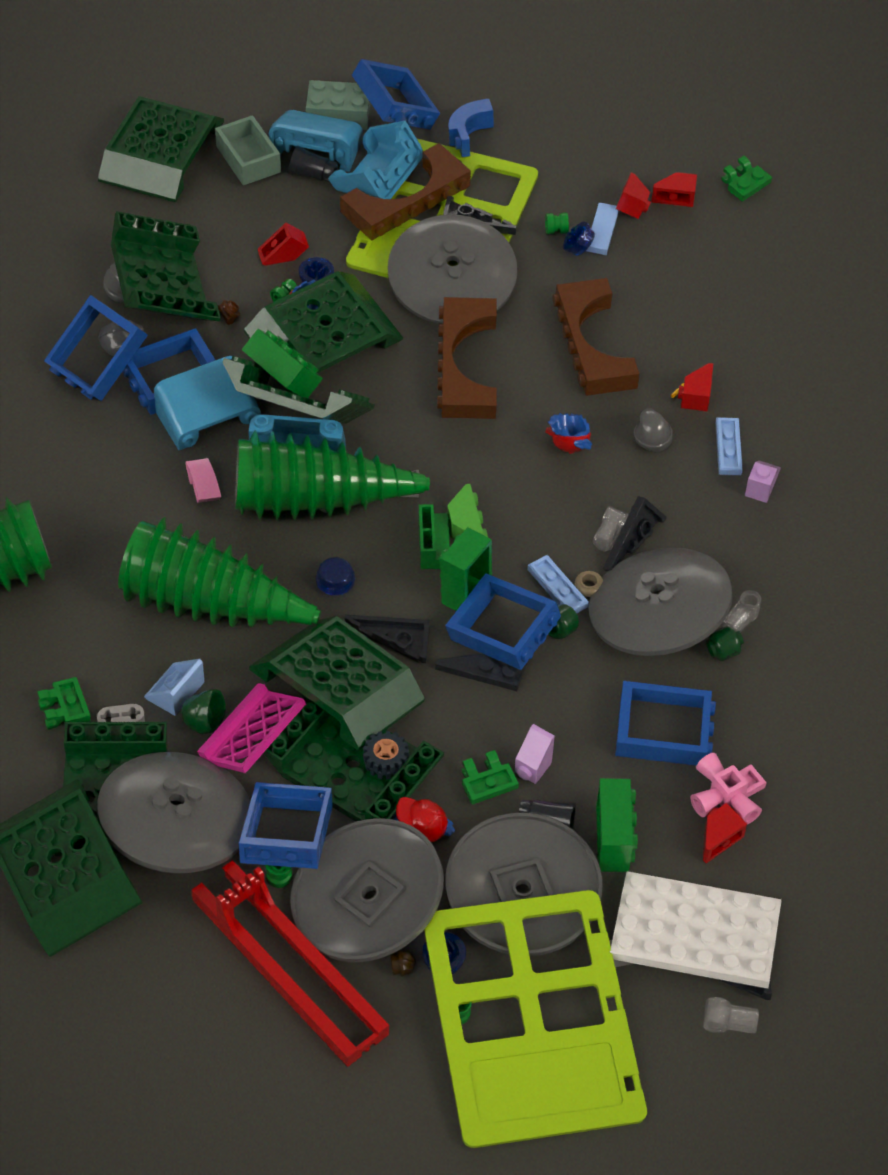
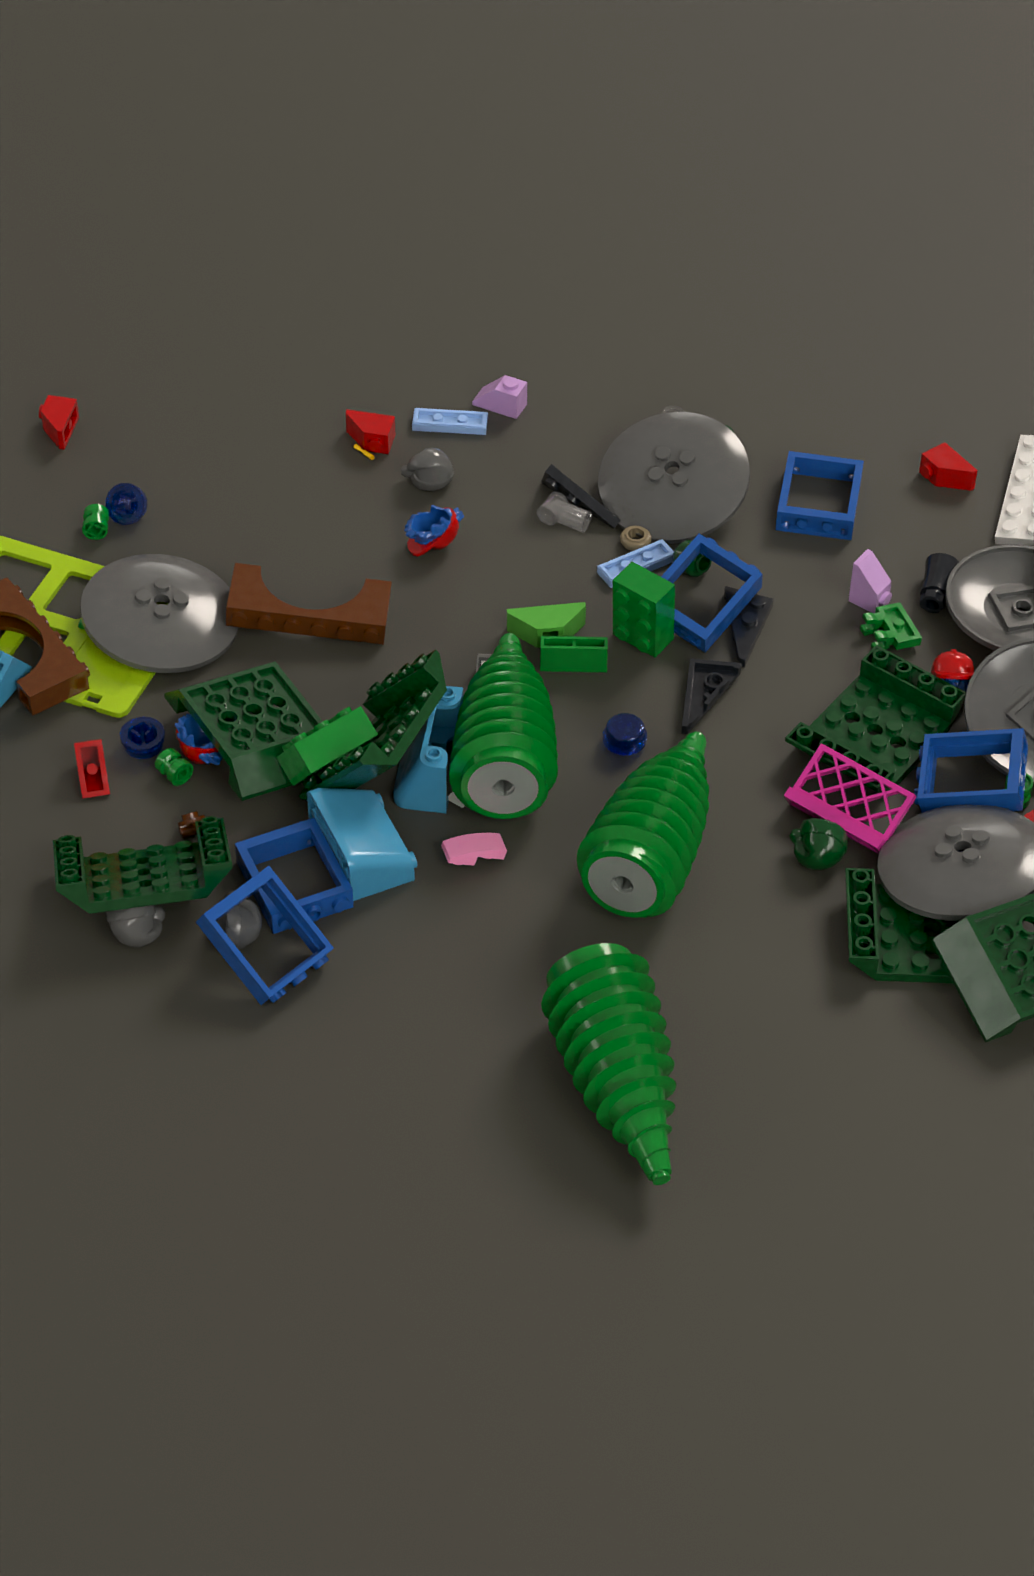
camera: 85 degrees left, 5 degrees down
(70, 701) = (804, 969): green plate -> none
(121, 713) = (815, 927): light grey beam -> none
(177, 685) = (779, 871): light blue slope -> none
(364, 696) = (771, 725): dark green slope -> none
(387, 745) = (877, 692): black wheel -> none
(466, 209) = (66, 599): black wing -> none
(596, 370) = (332, 508): reddish brown arch -> none
(603, 227) = (93, 485): light blue tile -> none
(615, 825) = (952, 528): green piece -> none
(634, 197) = (65, 453): red slope -> none
(728, 787) = (899, 455): bright pink brick -> none
(749, 183) = (48, 368): green plate -> none

